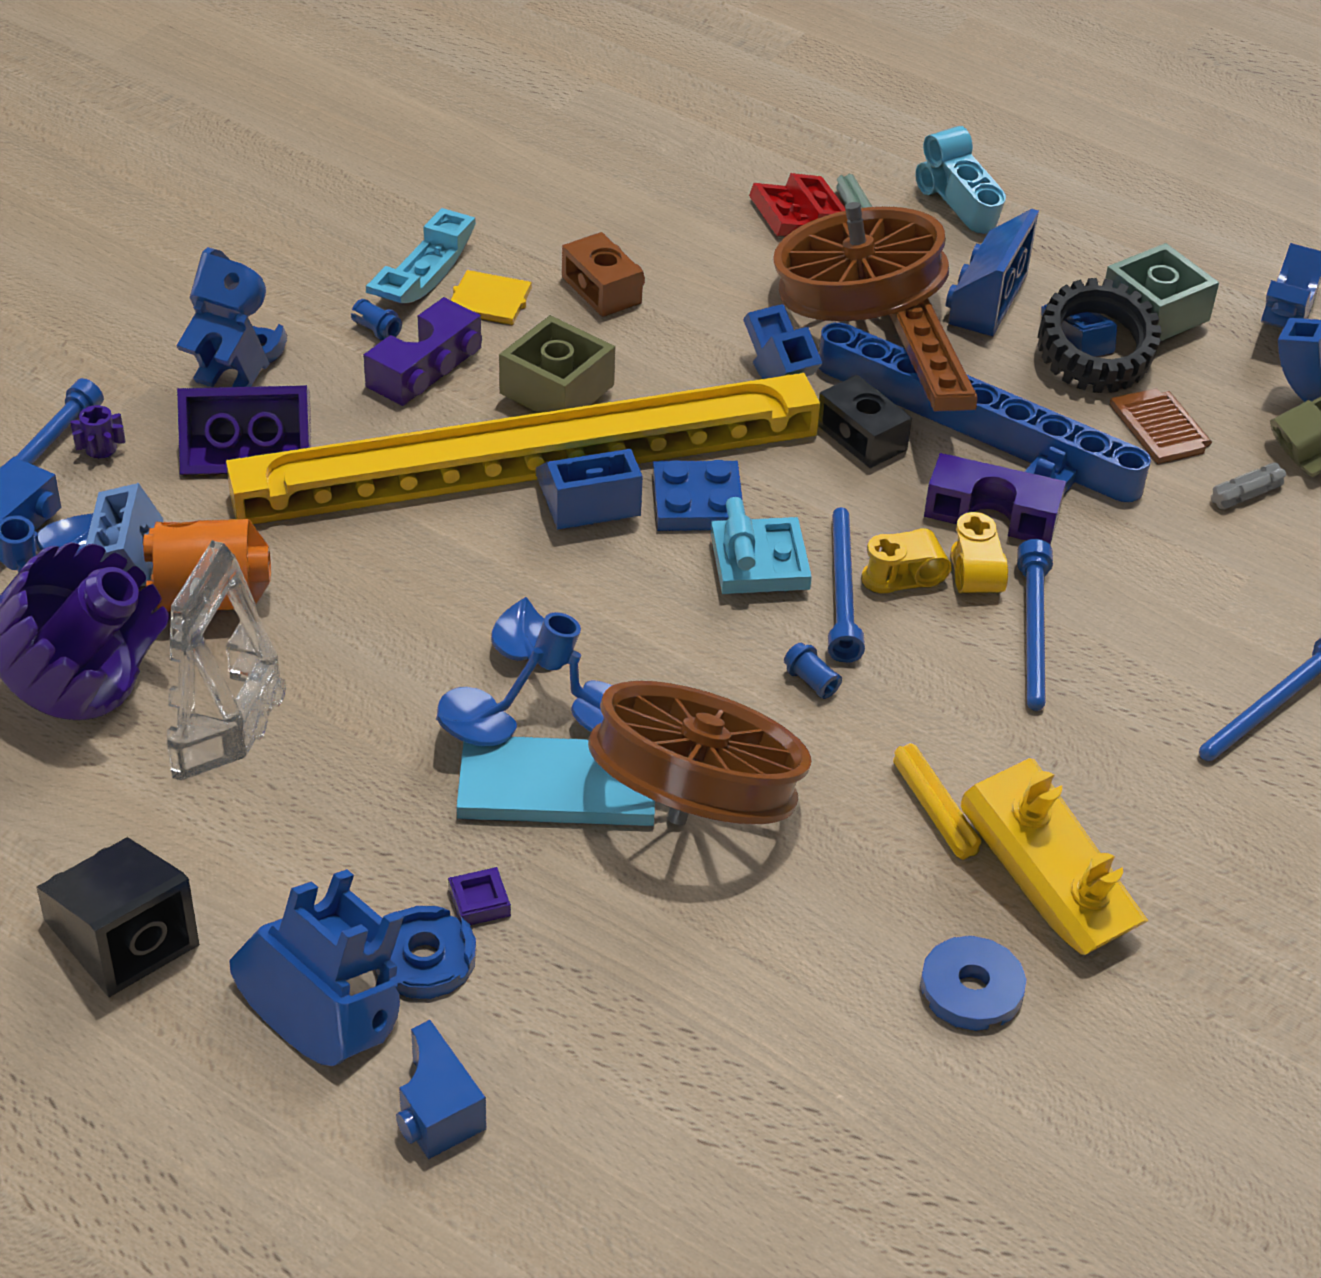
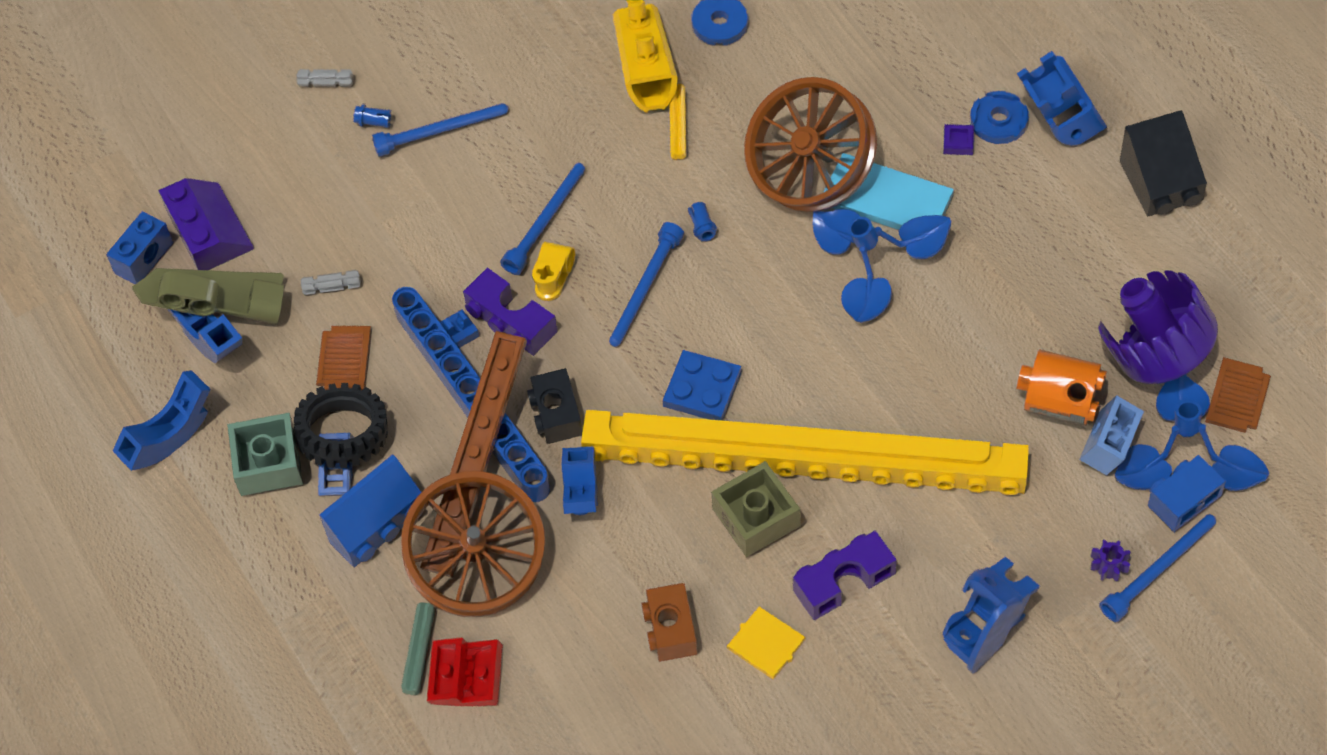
camera: 150 degrees left, 15 degrees up
(201, 740) = (1084, 266): clear windscreen -> none
(240, 424) = (999, 531): dark purple slope -> none
(376, 319) = (867, 630): blue pin -> none
(429, 262) = (811, 684): medium azure slope -> none
(441, 1100) = (1019, 28): blue arch -> none
(592, 488) = (777, 393): blue slope -> none
(759, 553) = (689, 314): medium azure plate -> none
(908, 559) = (596, 280): yellow piece -> none
(960, 179) = (325, 635): medium azure piece -> none

